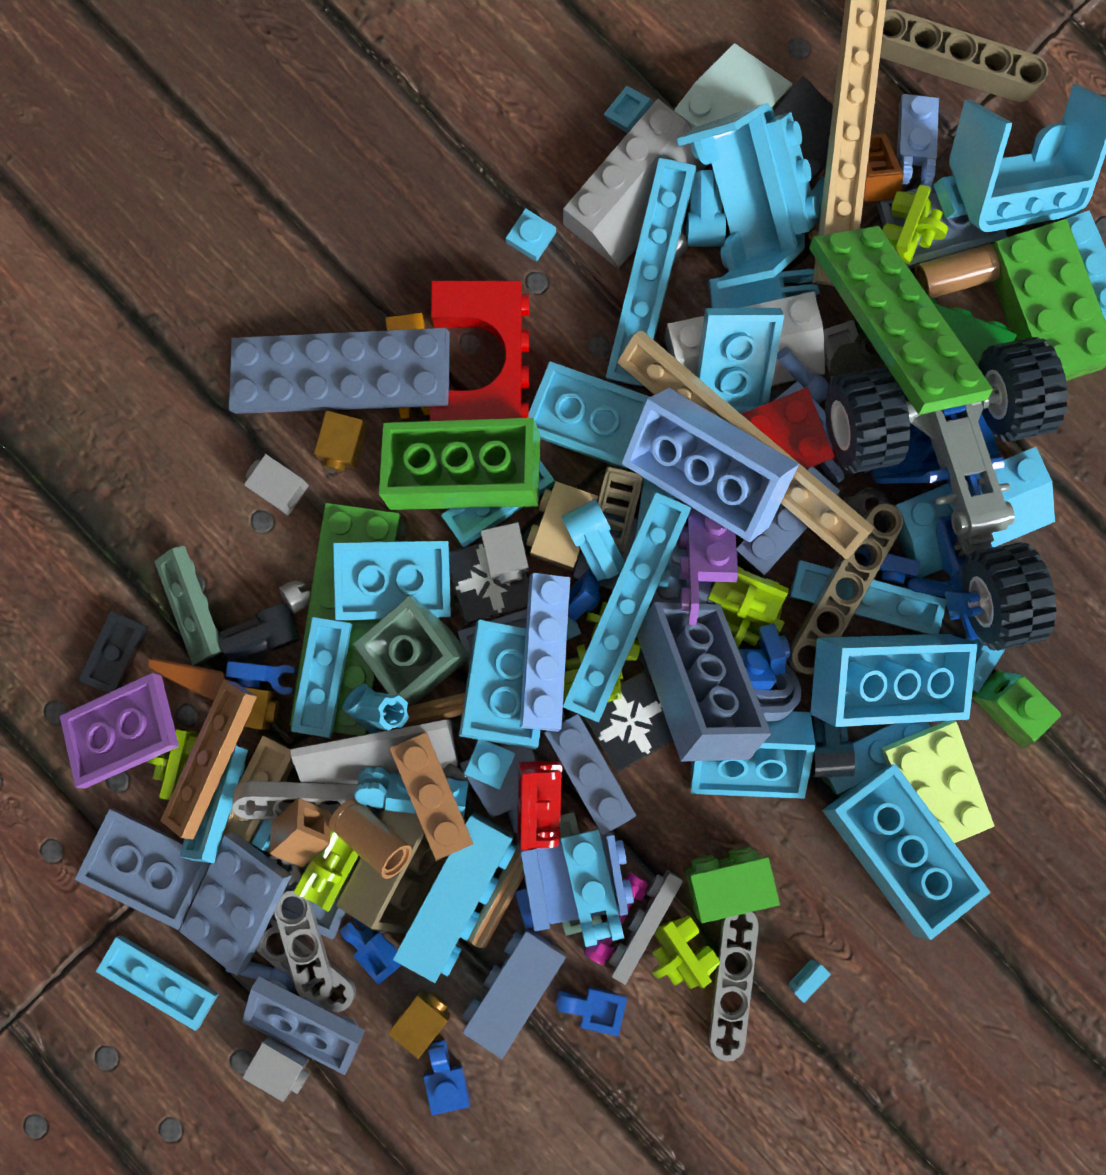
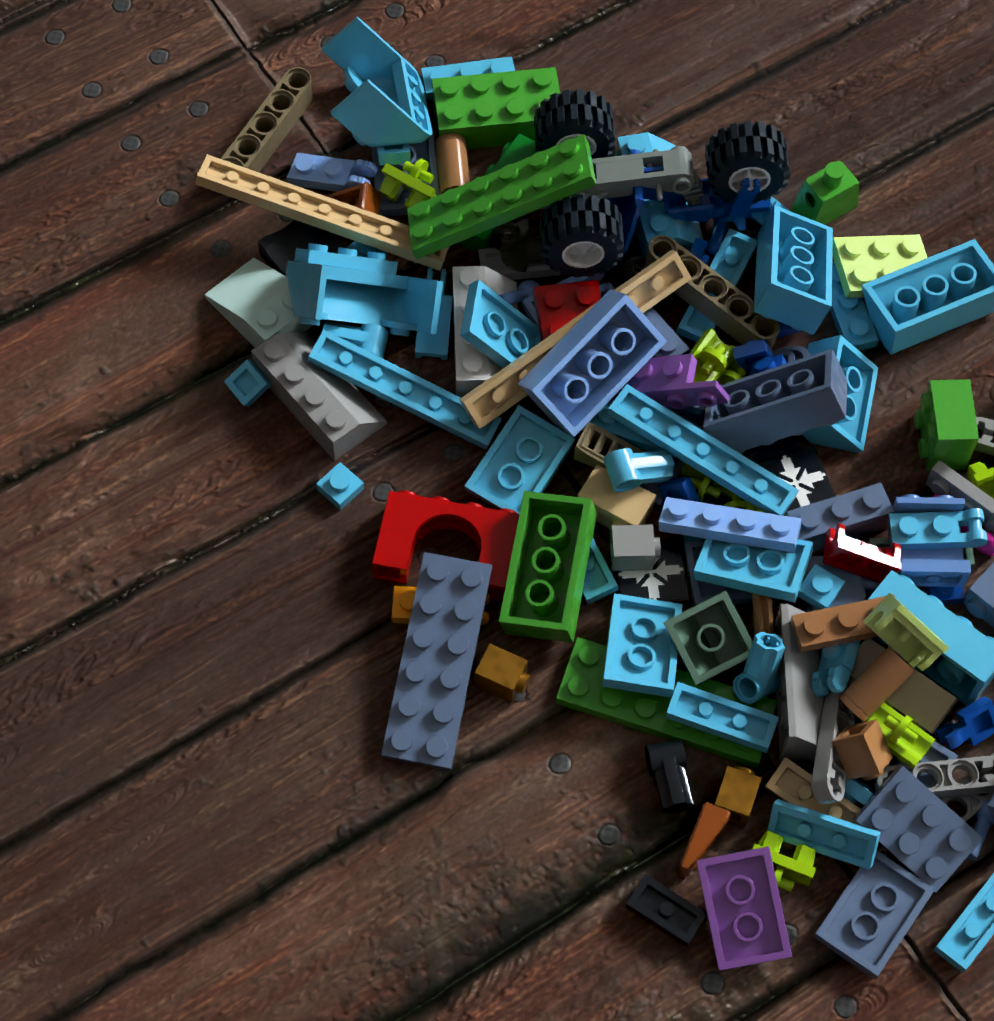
camera: 85 degrees left, 20 degrees down
(188, 605) = (632, 833): sand green plate -> none
(208, 759) = (785, 820): medium nougat plate -> none
(251, 674) = (707, 787): blue plate -> none
(275, 484) = (531, 736): light grey brick -> none
(293, 597) = (637, 739): light grey hinge -> none
(426, 863) = (905, 633): none -> yellowish green hinge
(833, 752) = (849, 324): black piece -> none

